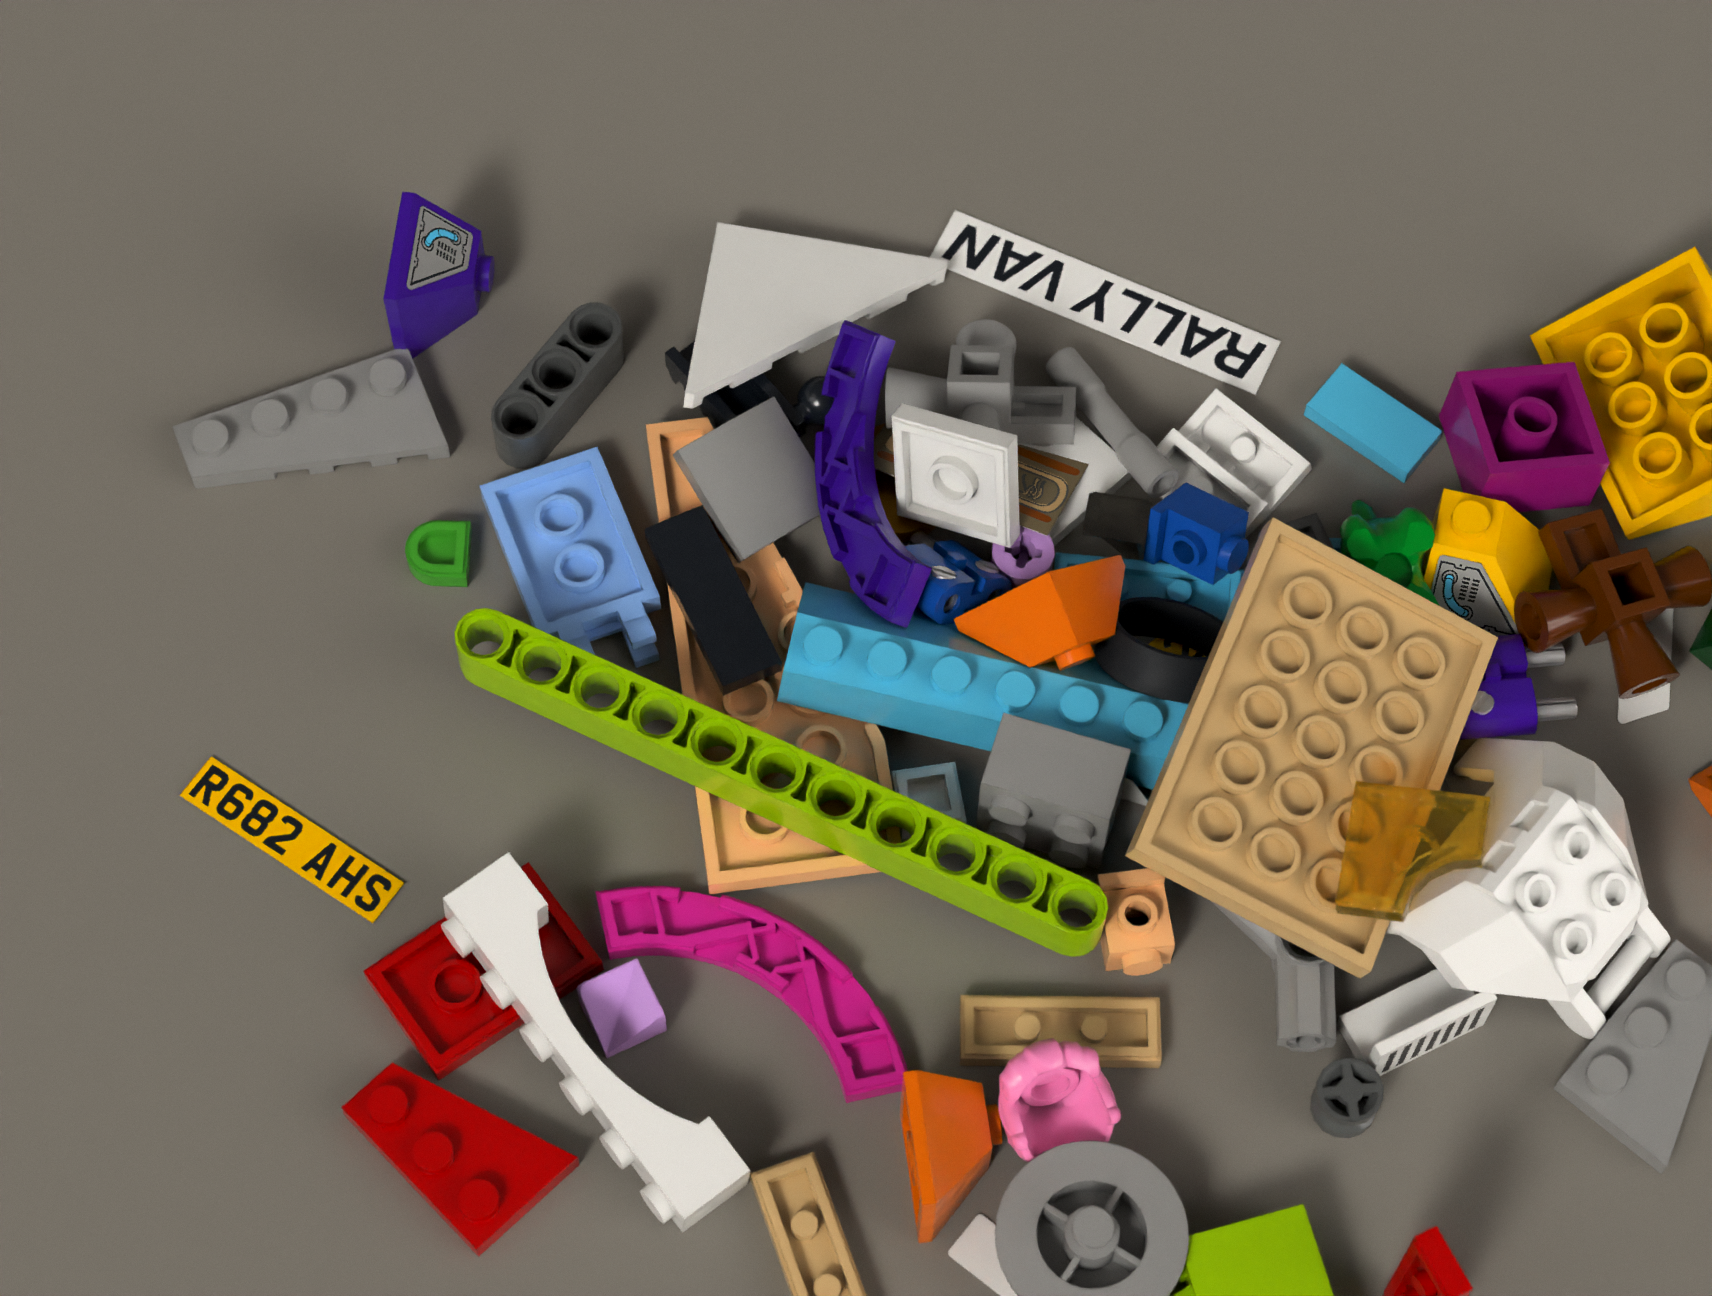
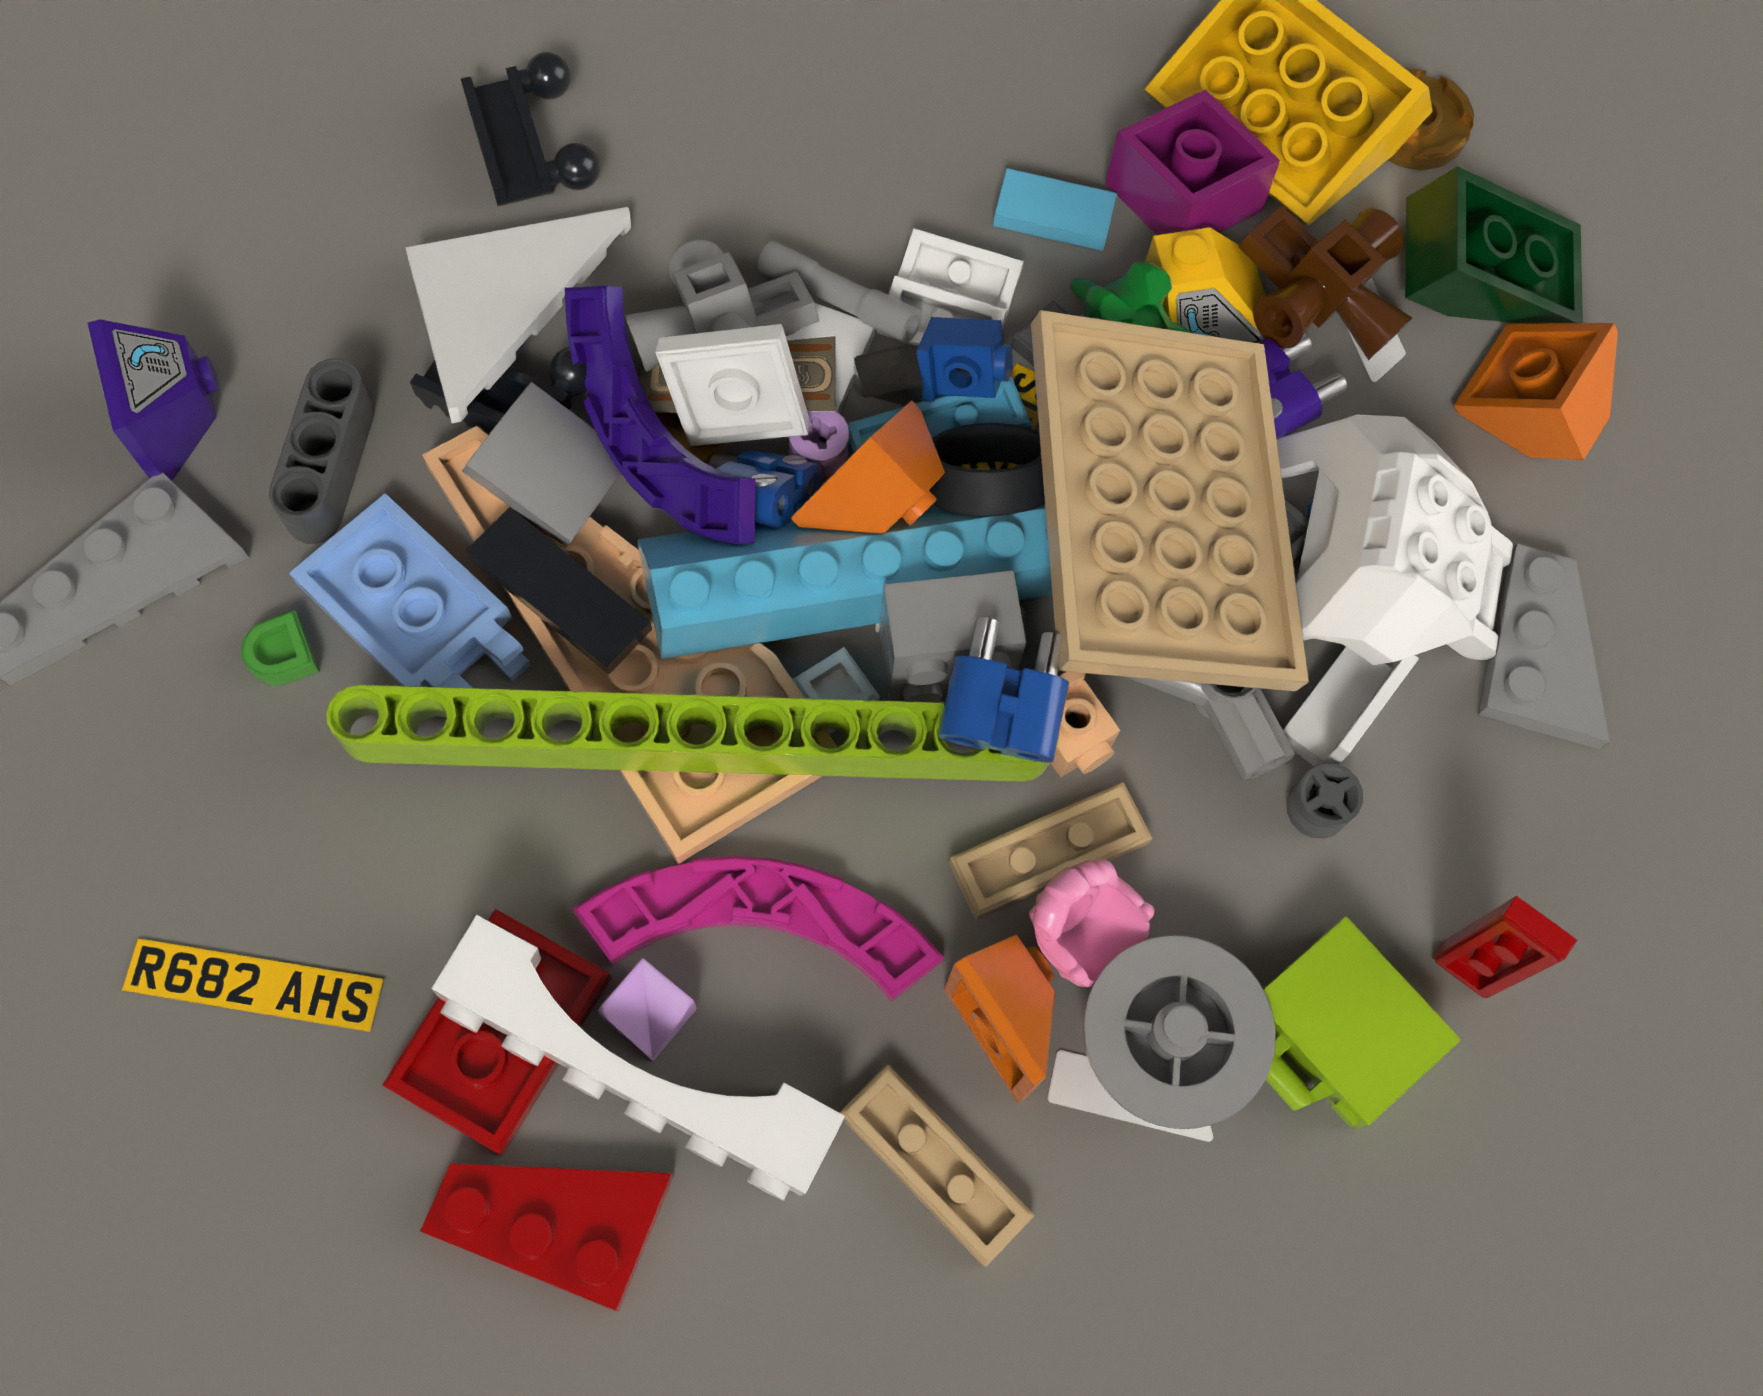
camera: 30 degrees left, 5 degrees up
(865, 151) = (510, 137): none -> black gear
(1059, 867) = (1003, 705): none -> blue piece
(1106, 302) = (778, 193): white sticker -> none
(1402, 842) = (1289, 552): clear yellow tile -> none

